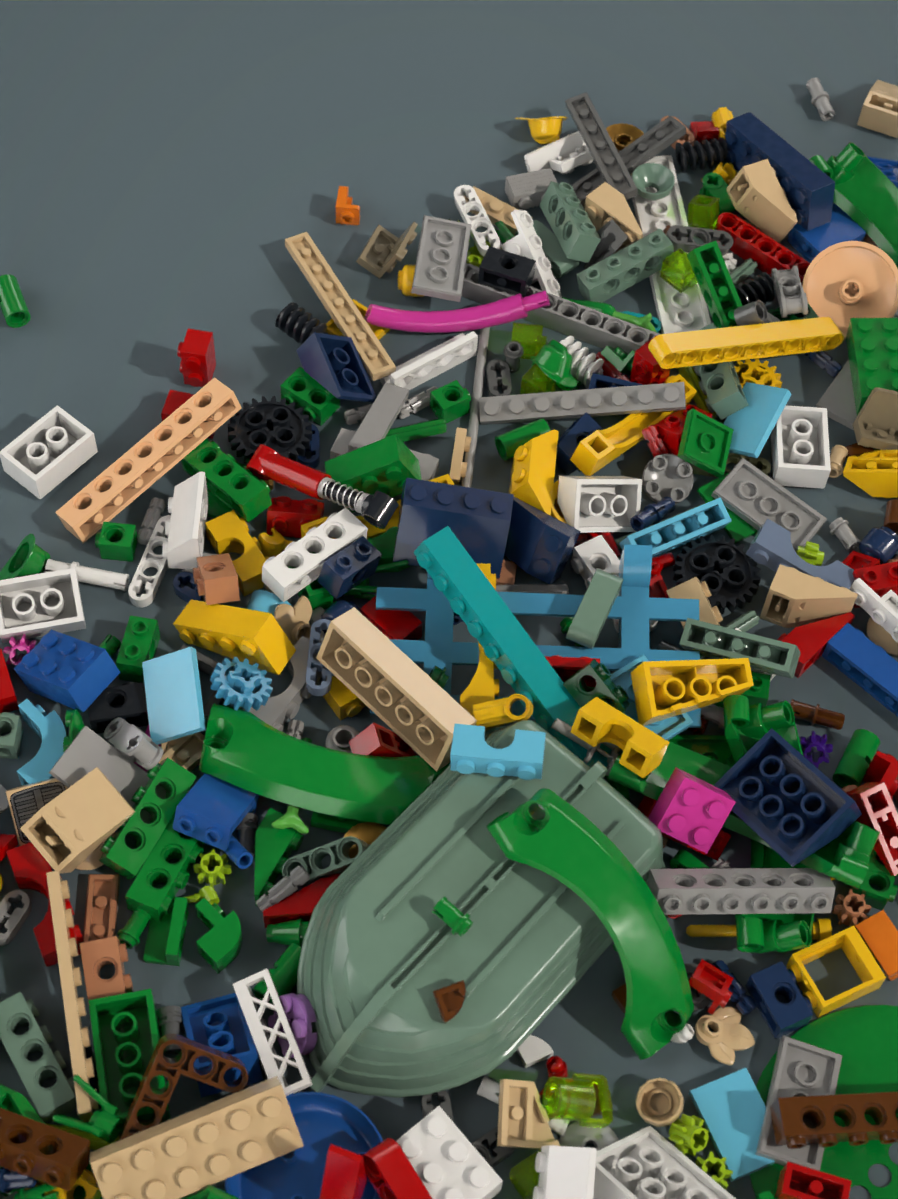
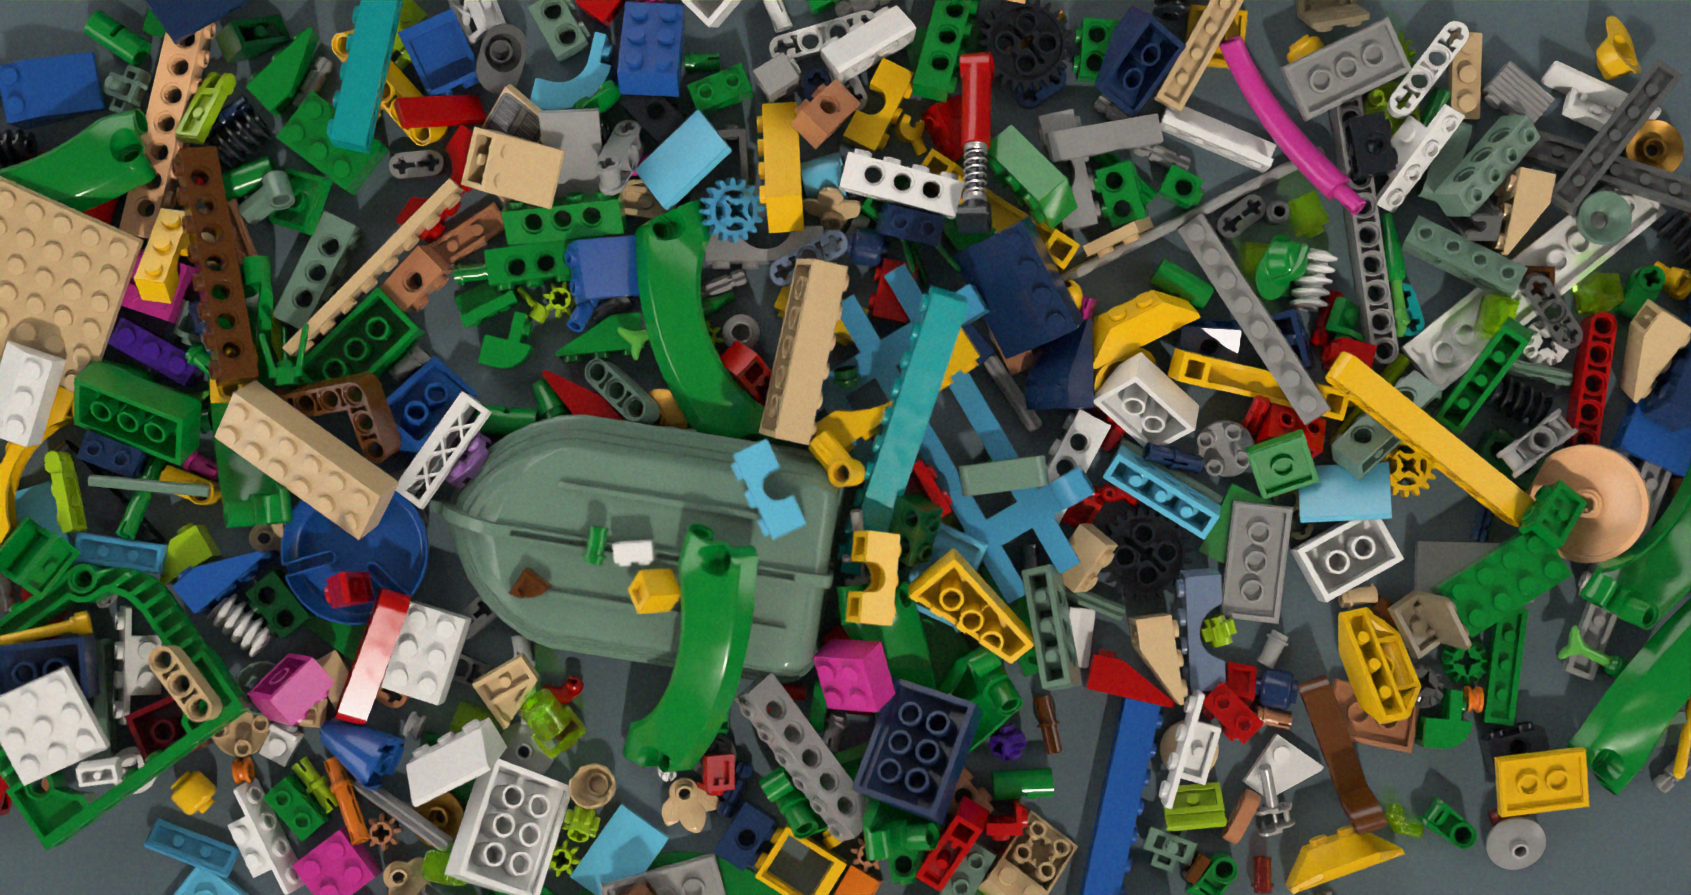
camera: 60 degrees right, 30 degrees up
(163, 599) = (778, 78): none -> light grey brick
(283, 888) = (573, 373): light grey axle -> none
(428, 427) = (1129, 191): none -> green brick
(476, 893) = (633, 551): none -> white piece
(524, 894) = (654, 591): none -> yellow panel
(533, 1051) = (577, 661): white tile -> none
(753, 314) = (1471, 430): dark grey piece -> none
(846, 304) = (1553, 513): none -> green bracket

